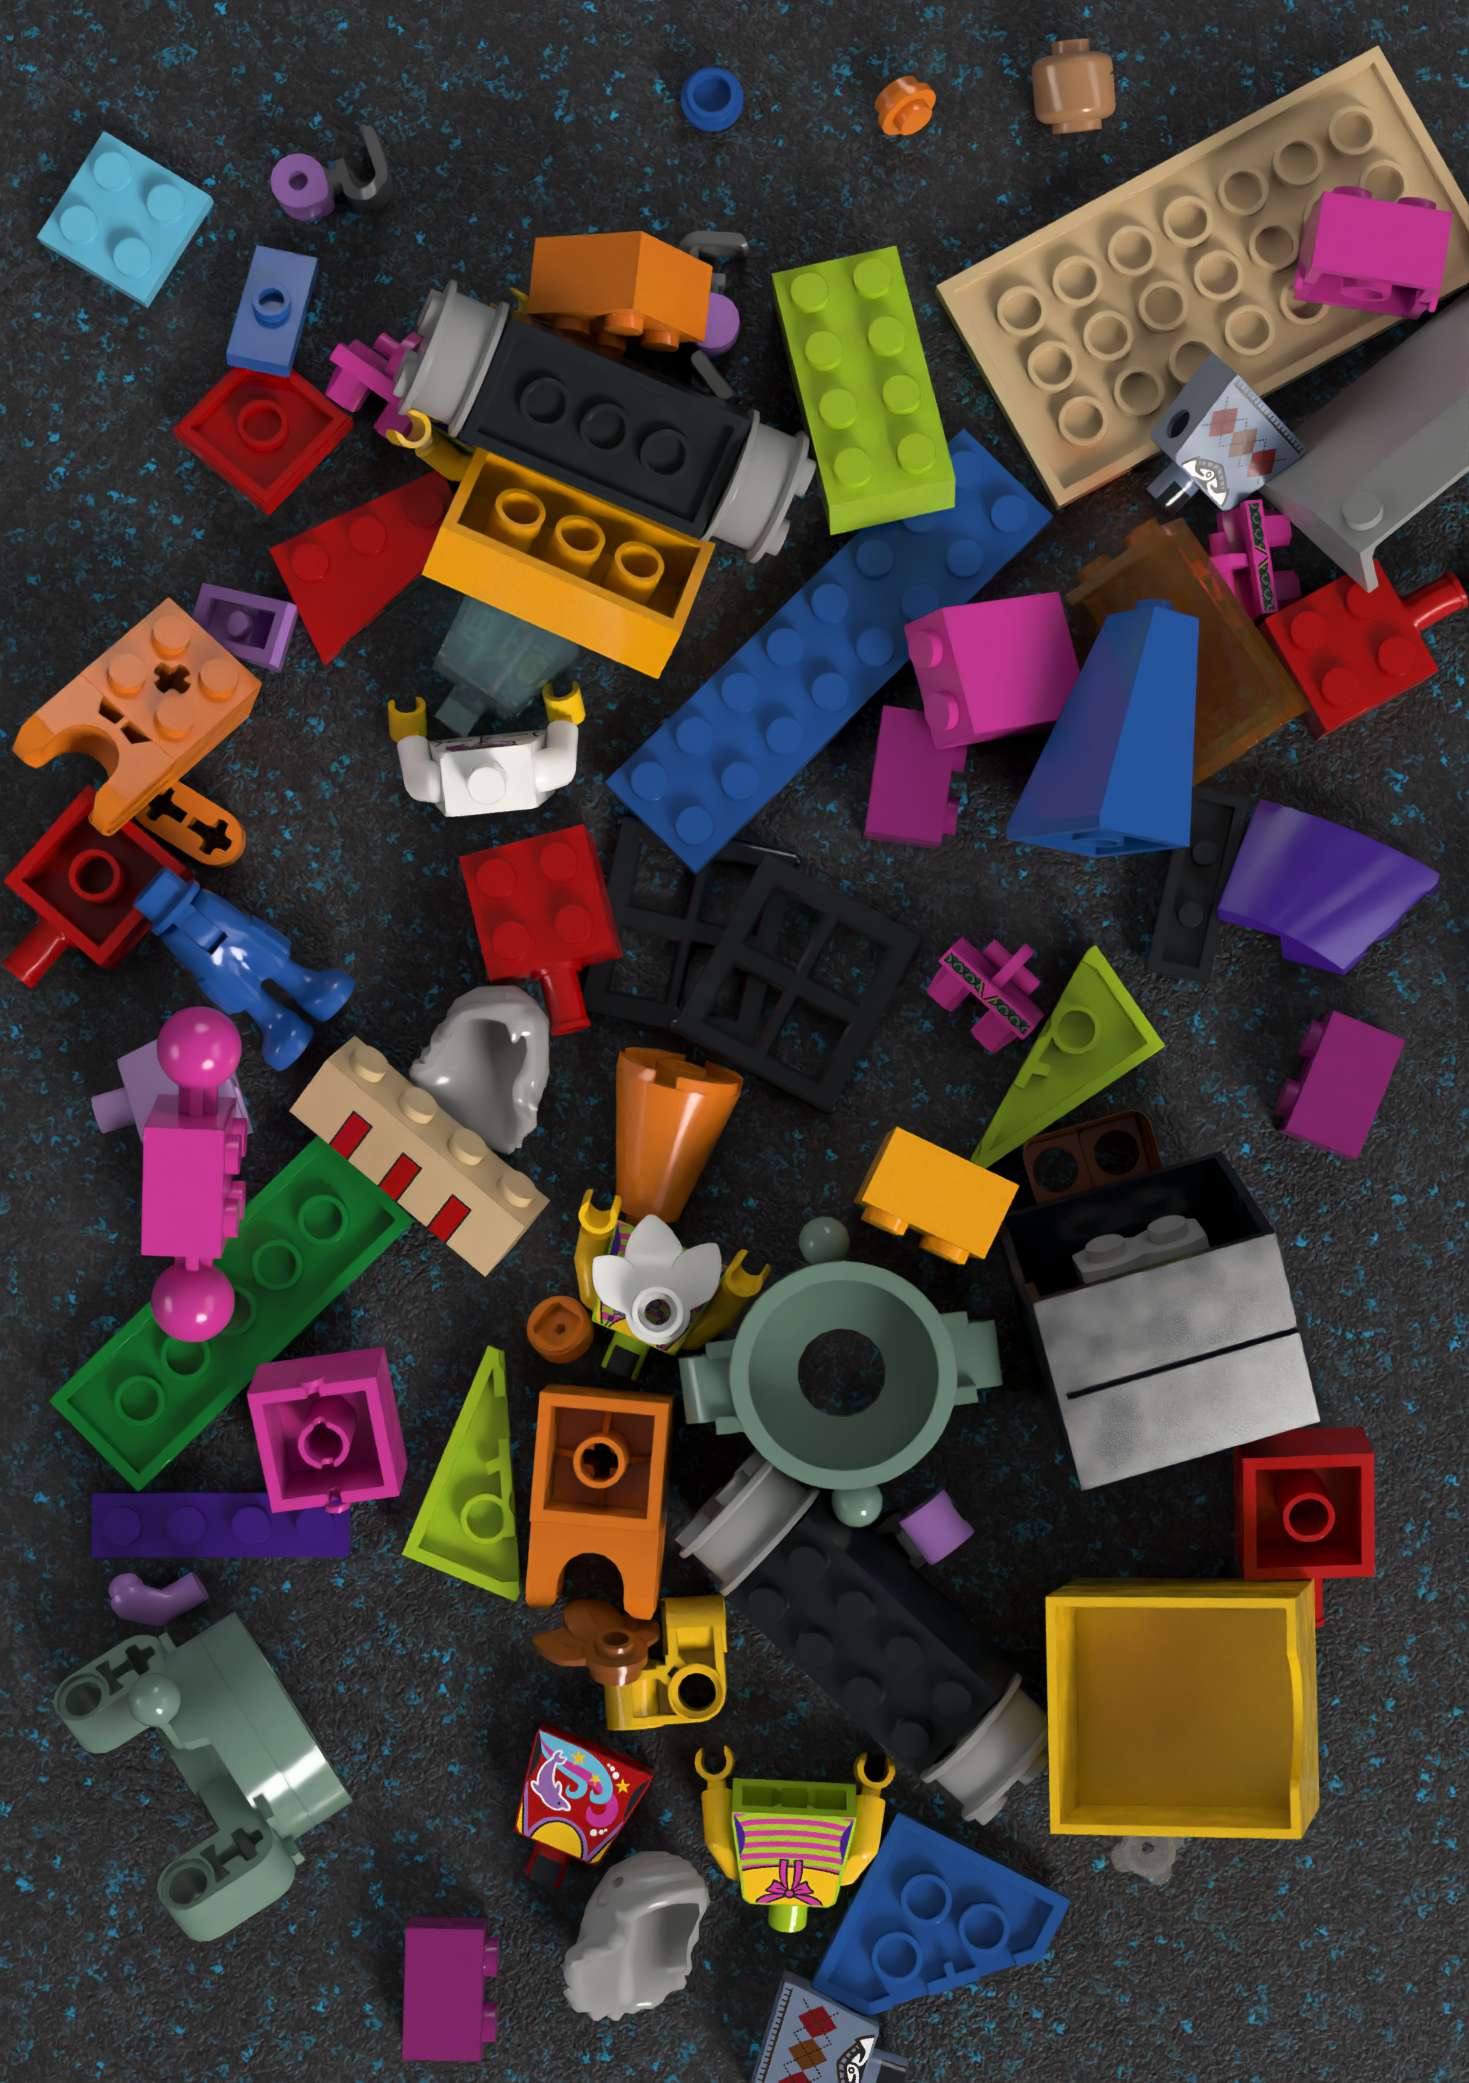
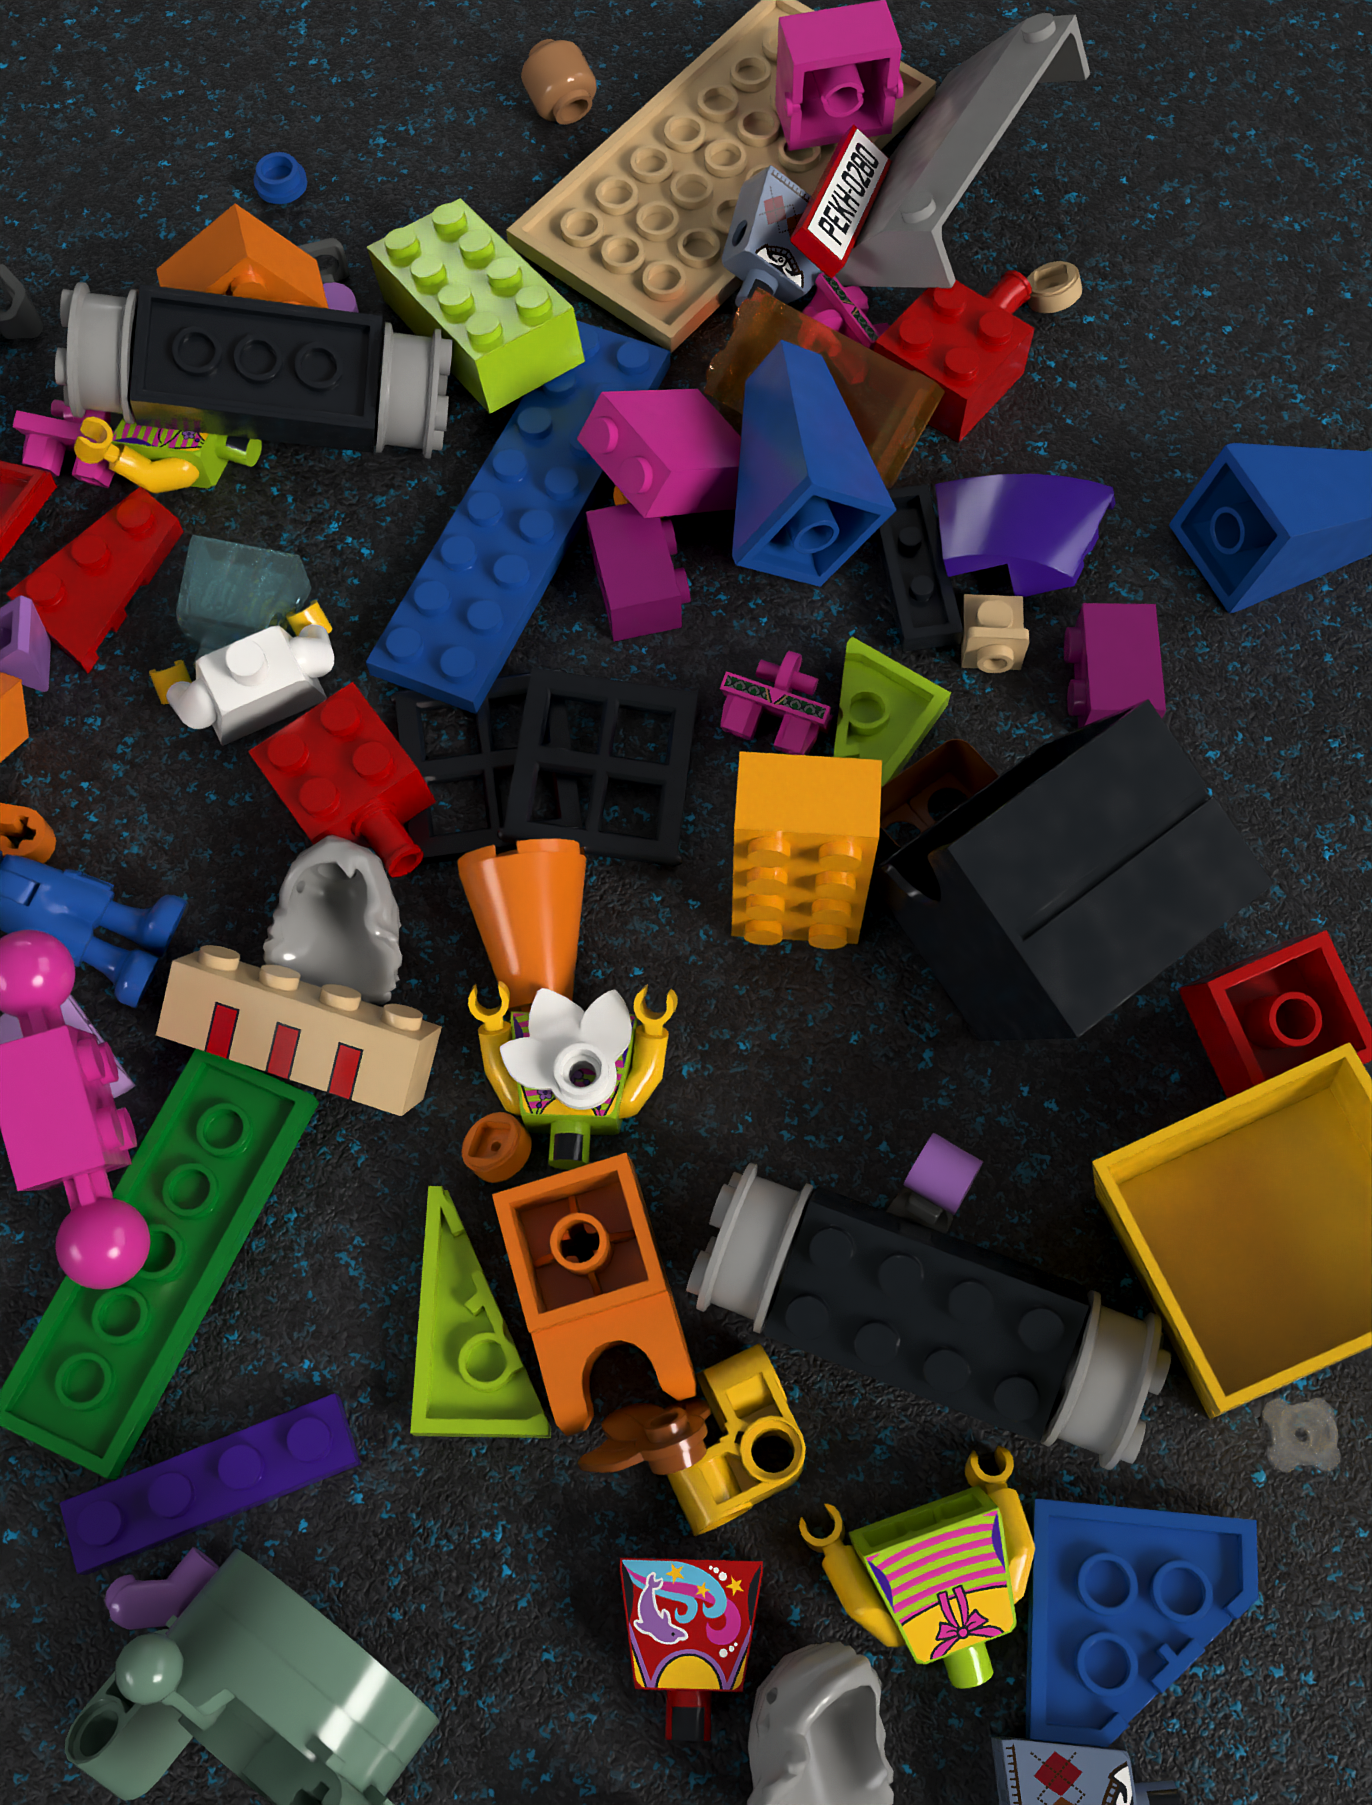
camera: 20 degrees left, 20 degrees down
(328, 1430) = (287, 1328): dark pink brick -> none
(569, 562) = (263, 491): light orange brick -> none
(904, 106) = (433, 134): orange plate -> none
(927, 1370) = (763, 967): sand green piece -> none
(1242, 987) = (993, 633): none -> tan bracket
(1307, 424) = (841, 202): none -> tile

